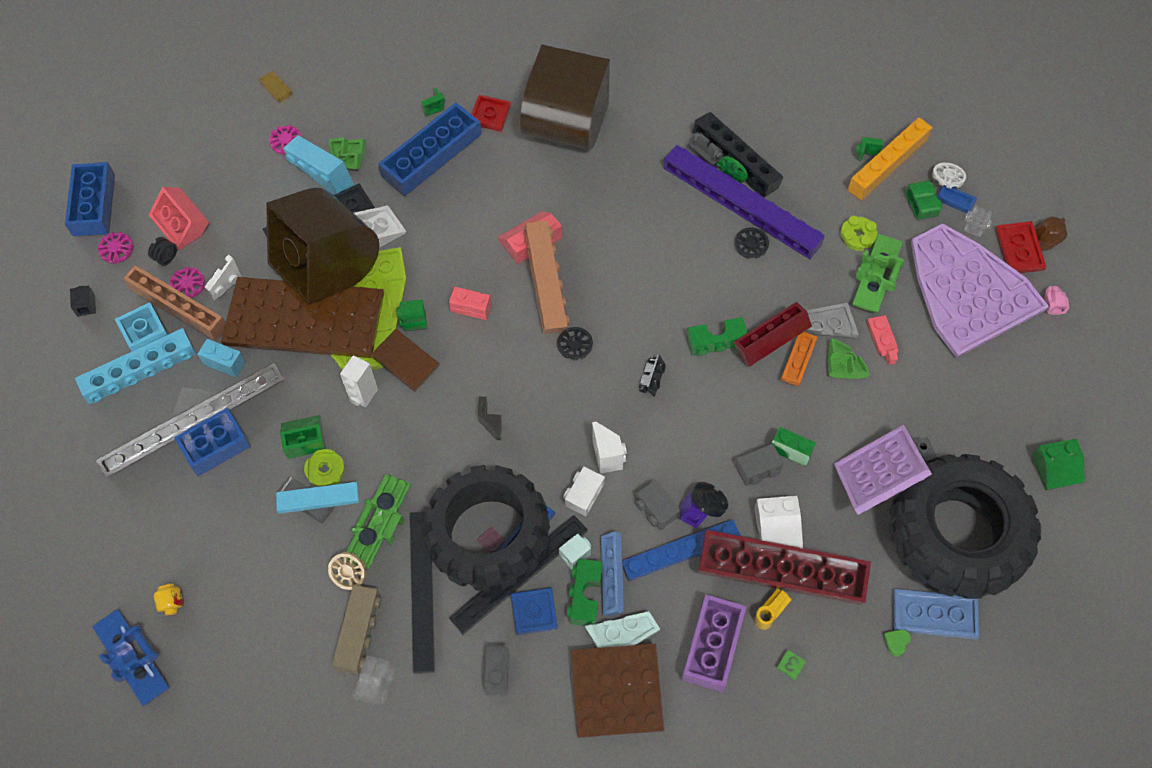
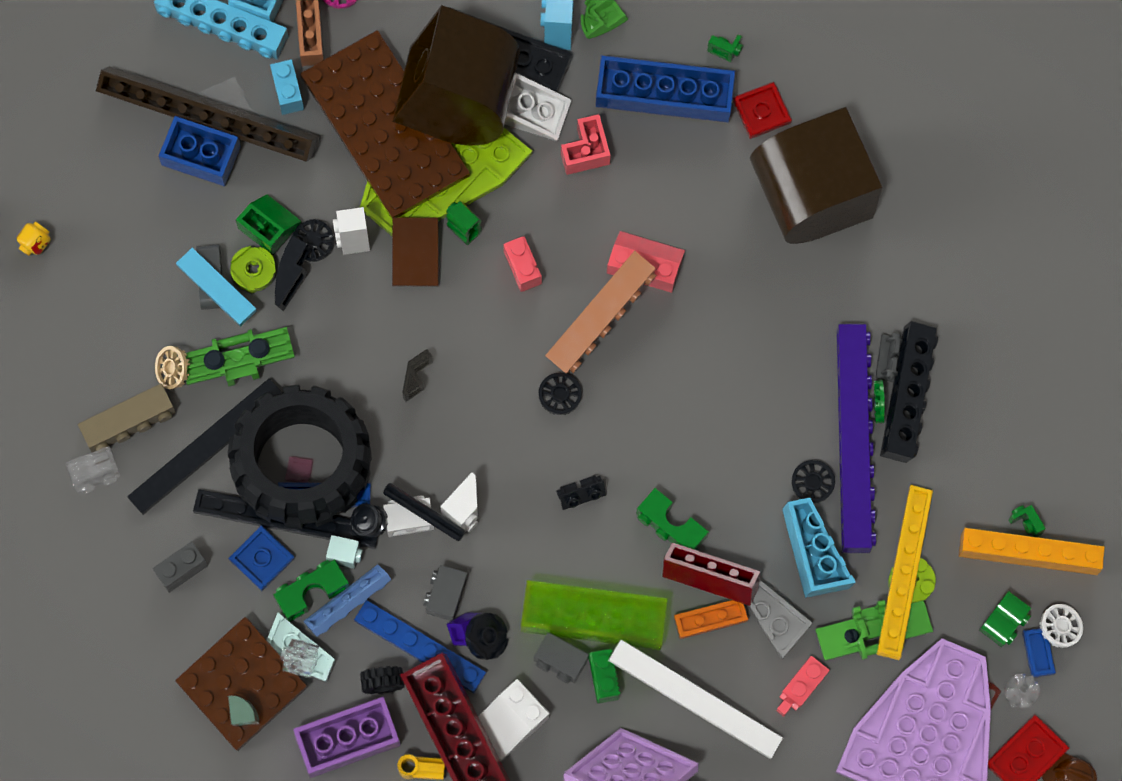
camera: 50 degrees right, 10 degrees up
(223, 279) = (363, 19): white wing -> none
(339, 418) = (314, 238): none -> black wheel
(349, 443) = (290, 272): none -> black slope
(429, 214) = (590, 151): none -> coral brick
(568, 515) = (369, 520): none -> black wheel
(592, 475) = (424, 512): none -> black axle
(633, 631) = (300, 657): none -> clear brick
(643, 701) = (242, 712): none -> sand green brick
(690, 589) = (381, 680): none -> black tyre
(745, 423) = (593, 614): none -> clear neon green brick
(799, 268) = (814, 550): none -> medium azure wedge
(844, 363) = (742, 665): bright green brick -> none
(849, 402) = (695, 699): none -> white tile
(856, 229) = (904, 572): none -> yellow tile

